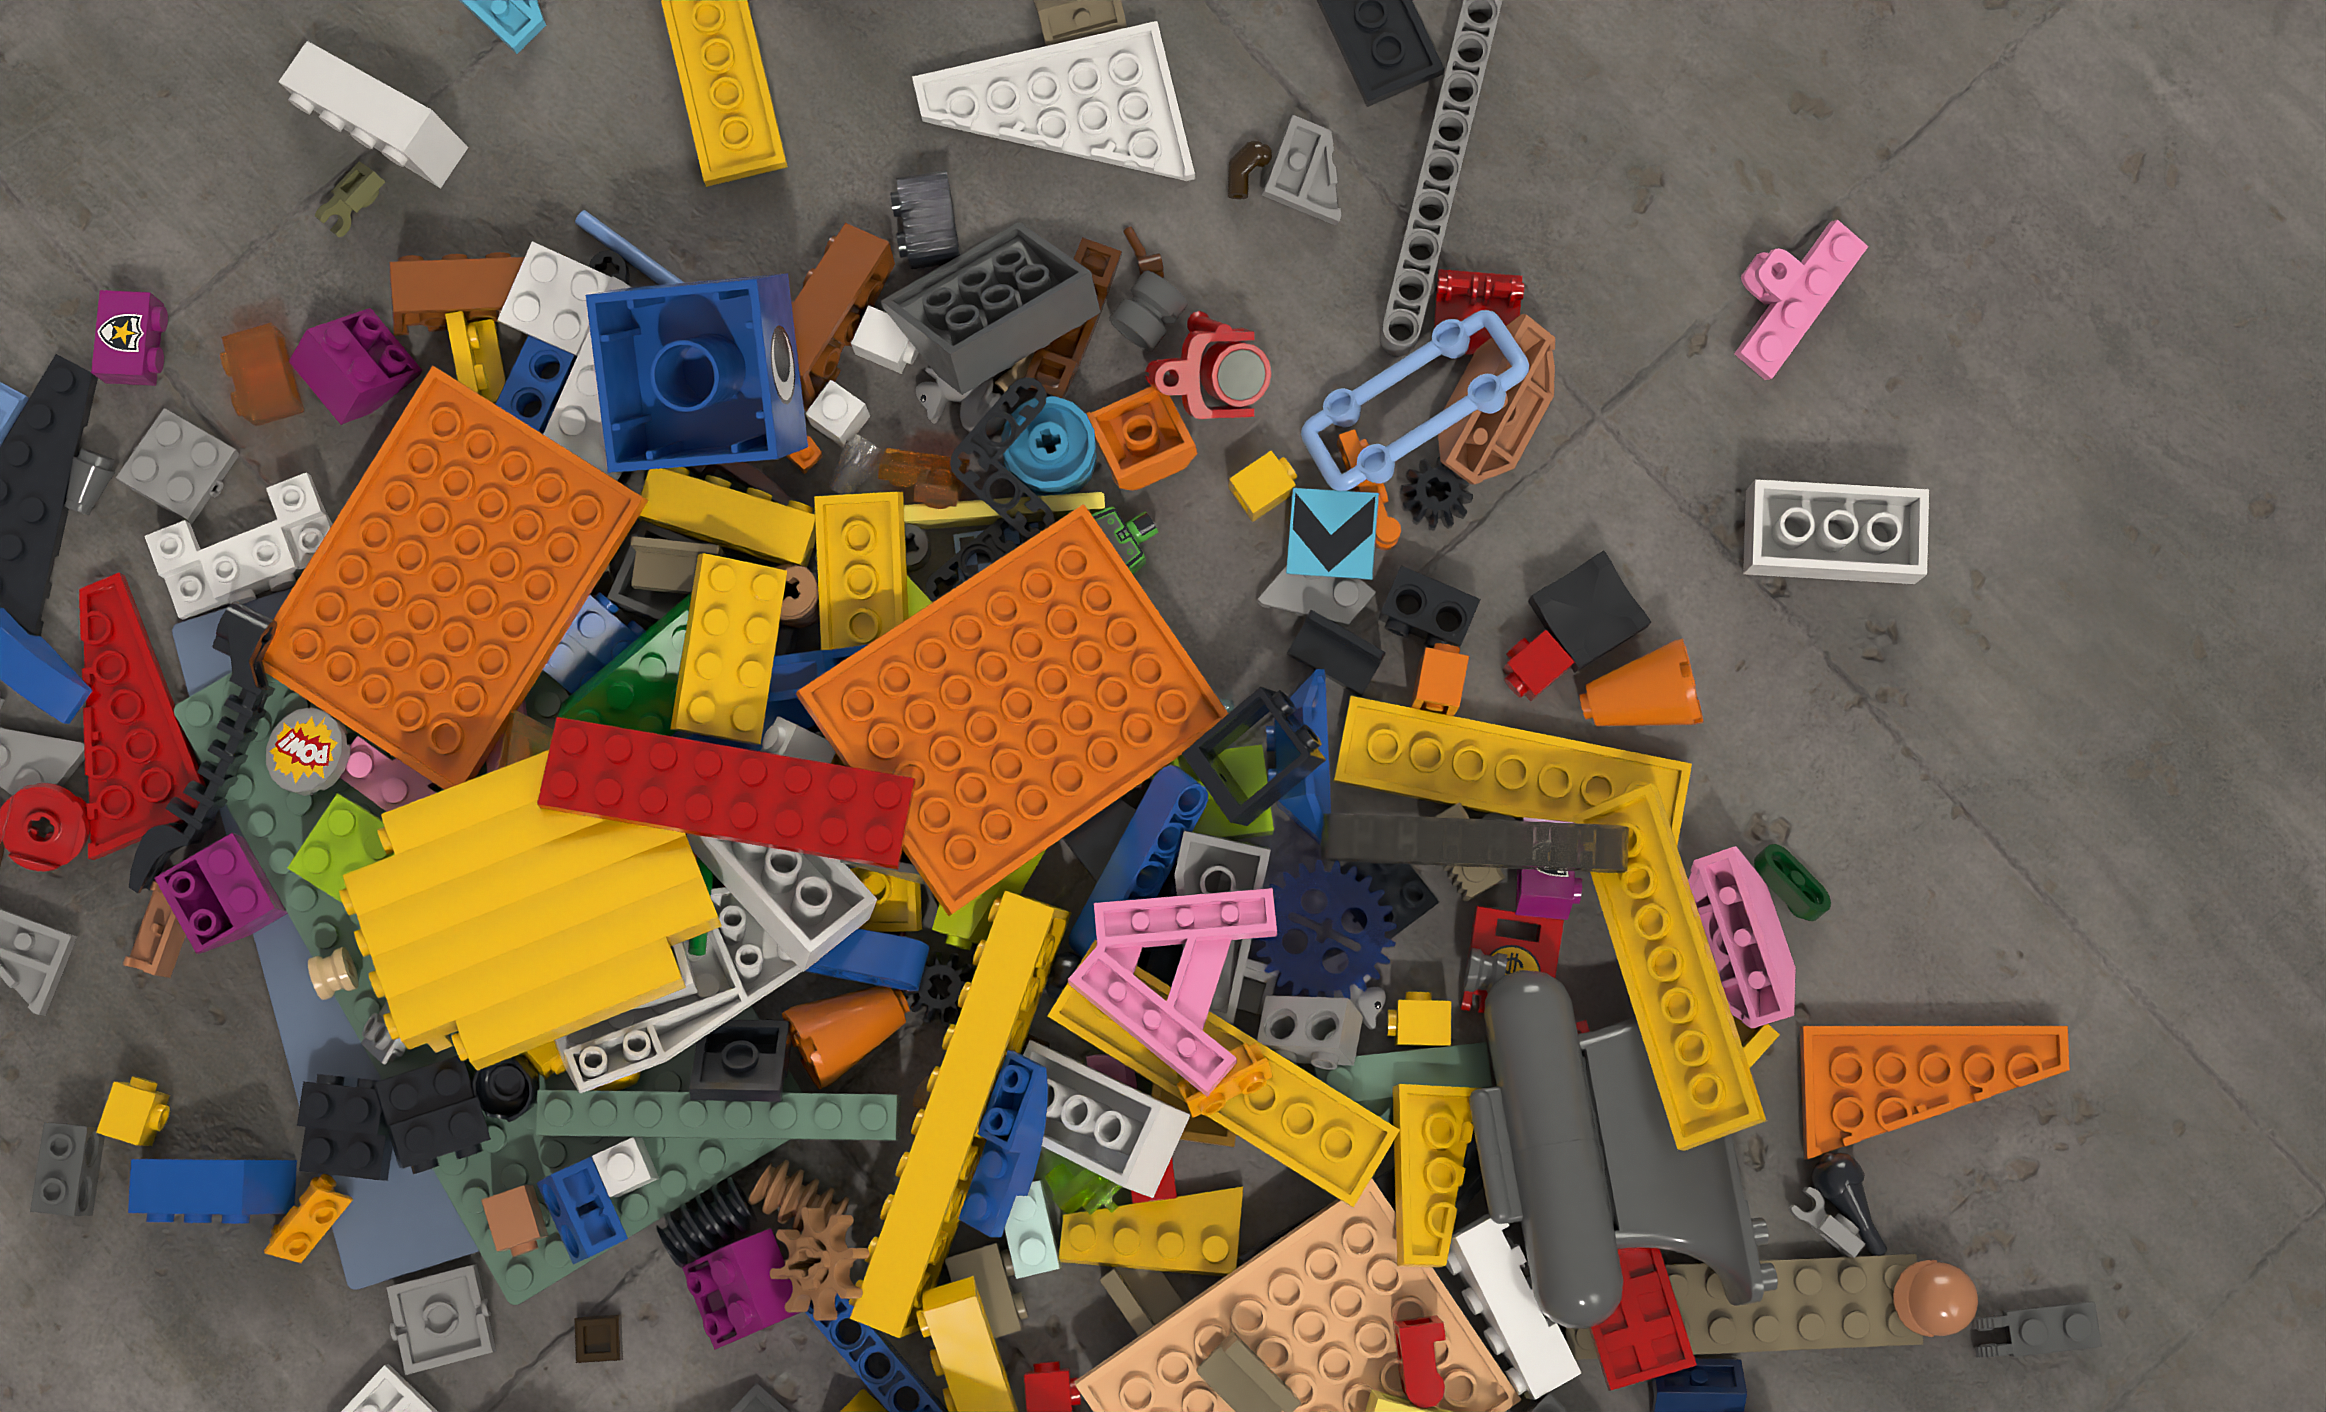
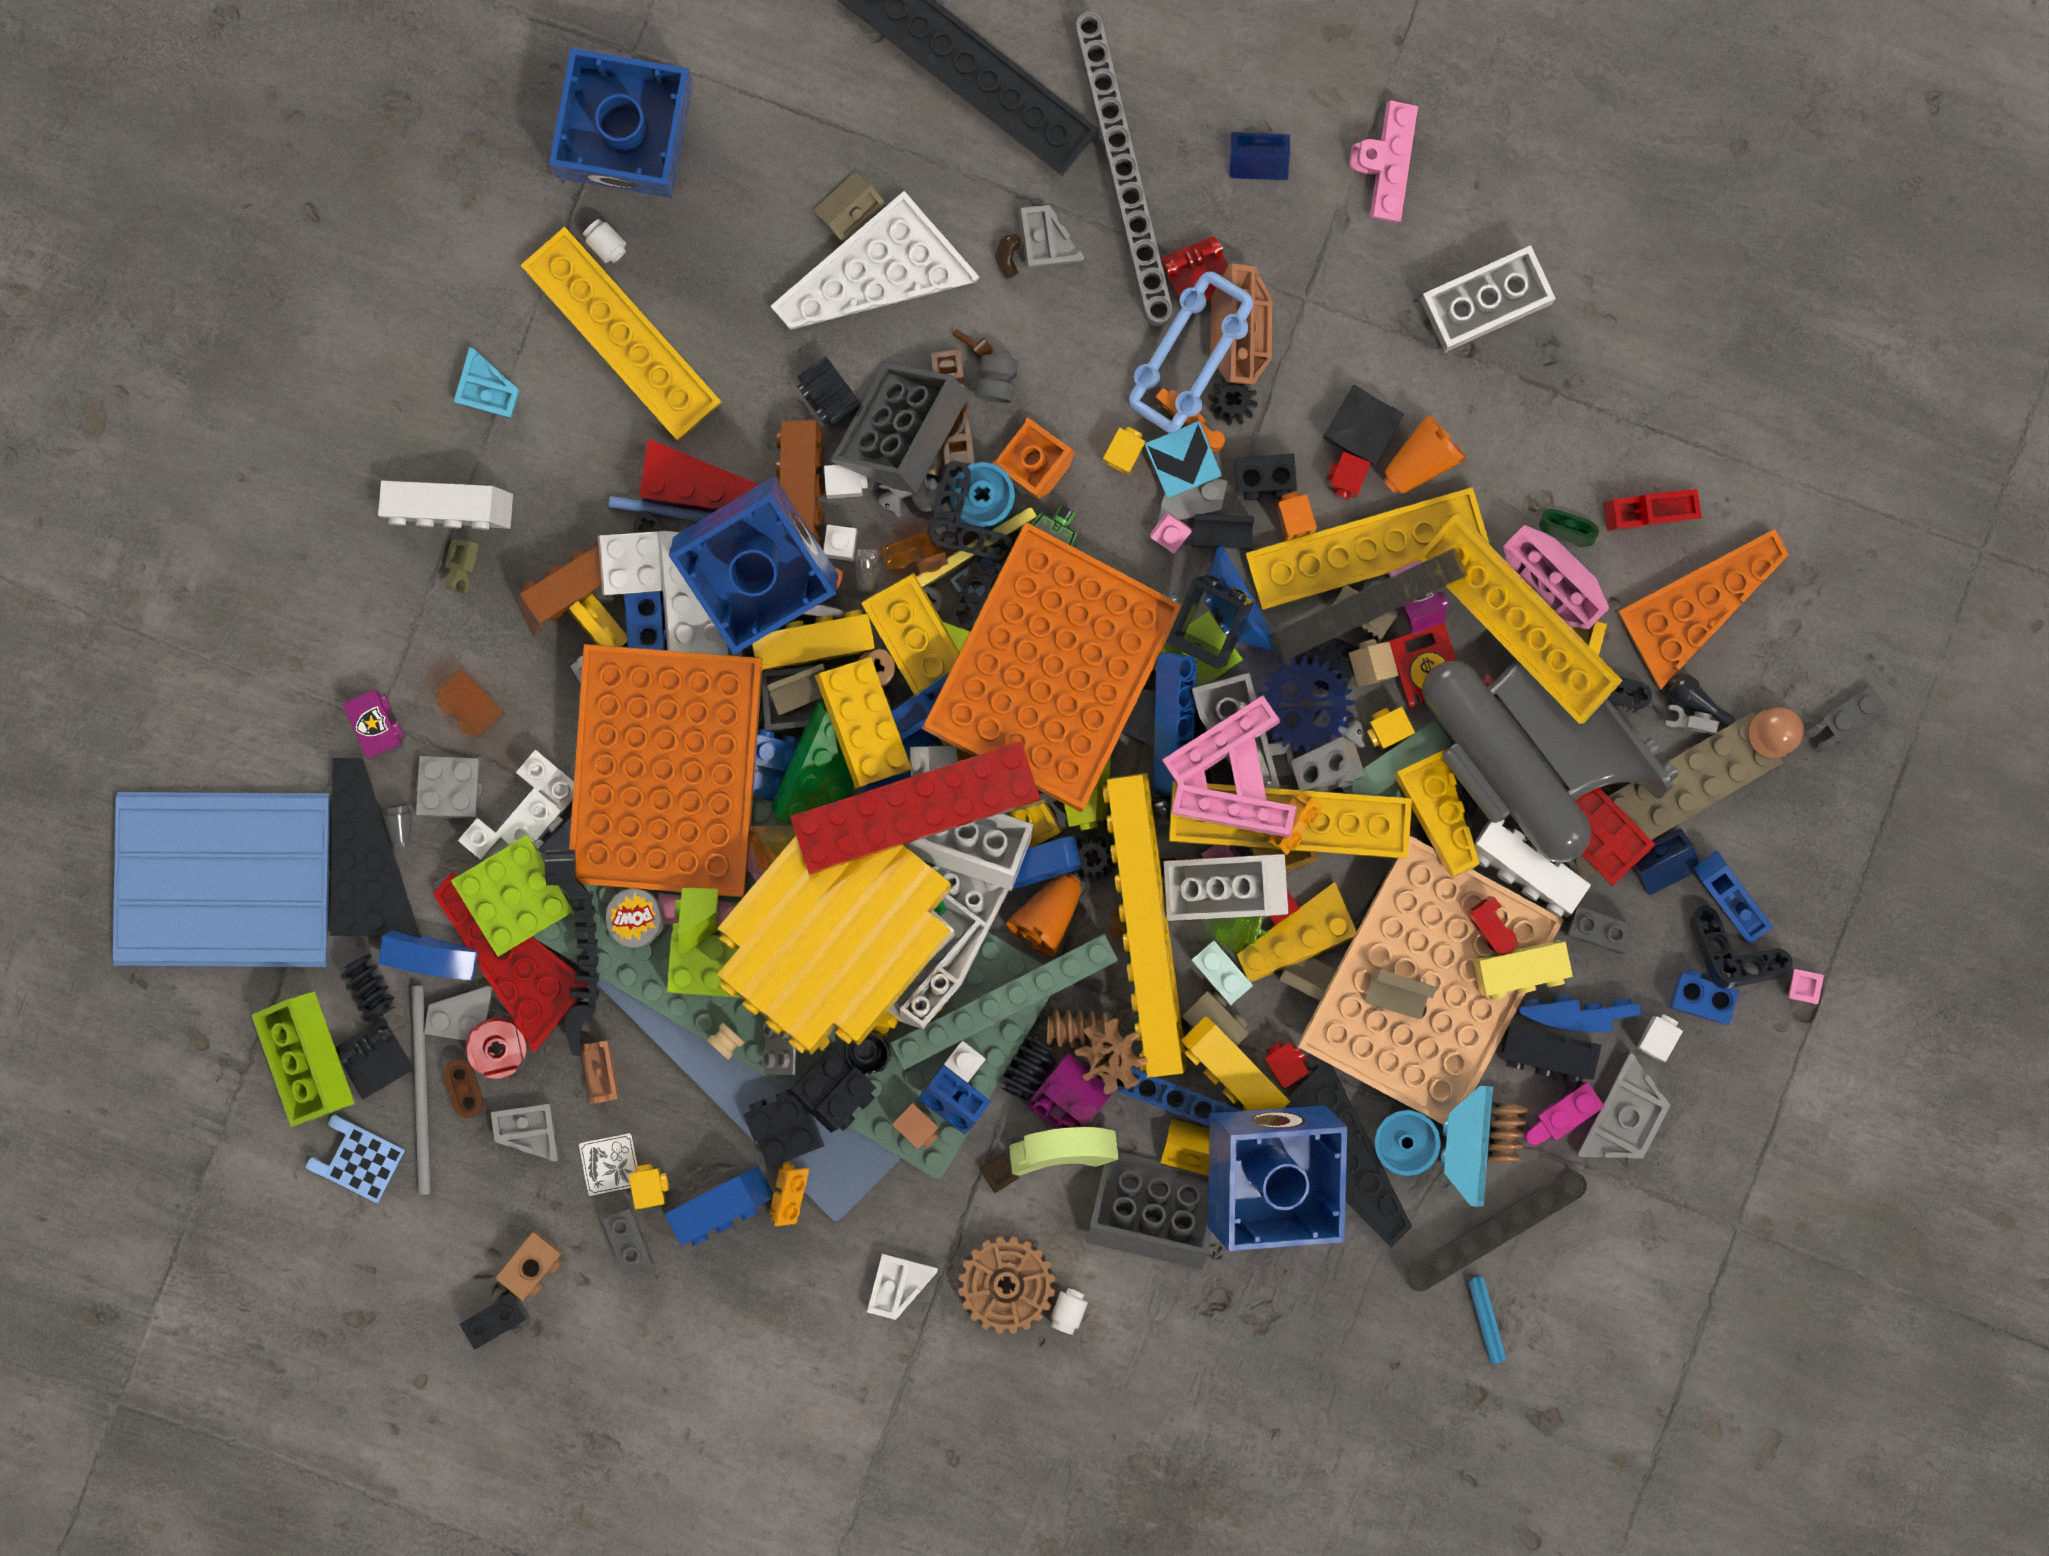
camera: 30 degrees left, 5 degrees up
(106, 1052) = (608, 1163): none -> white sticker
(163, 640) = (511, 895): none -> lime plate
(220, 894) = (630, 1030): magenta slope -> none
(353, 364) = (523, 668): magenta slope -> none
(374, 787) = (697, 917): none -> lime slope
(440, 1319) = (900, 1210): light grey plate -> none
(680, 231) = (687, 482): none -> red wedge
(697, 1353) = (1063, 1146): none -> yellowish green arch
(742, 1062) = (1003, 963): black plate -> none
(1014, 1138) = (1188, 926): blue slope -> none
(1228, 371) = (1057, 388): piece -> none
(1267, 620) = (1170, 532): none -> bright pink plate
(1443, 924) = (1373, 663): none -> tan brick
(1483, 970) = (1412, 678): dark grey wheel -> none
(1631, 207) = (1259, 156): none -> clear blue panel
(1755, 1152) = (1628, 701): none -> black beam
(1914, 916) = (1652, 510): none -> red slope

